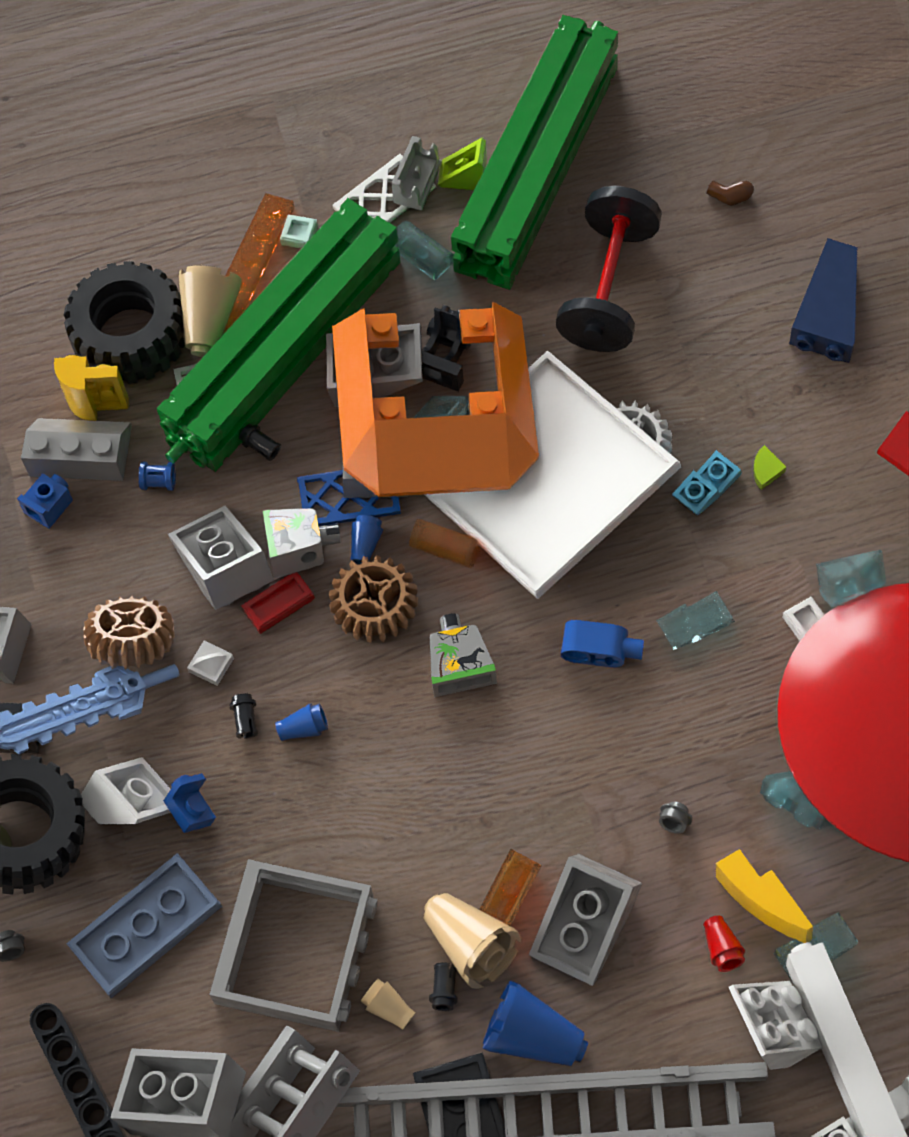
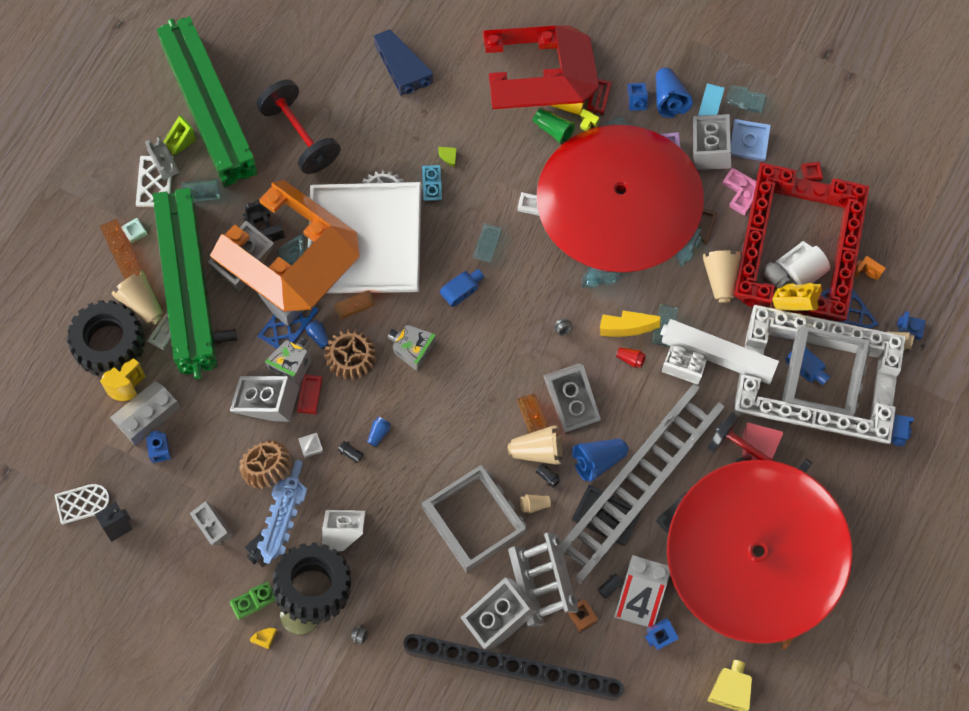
camera: 55 degrees left, 5 degrees up
(144, 925) = (404, 571): sand blue tile -> none
(157, 476) = (201, 389): blue bush -> none
(188, 804) = (369, 508): blue bracket -> none
(731, 194) = (309, 49): reddish brown arm -> none
(850, 577) = (530, 171): clear light blue slope -> none

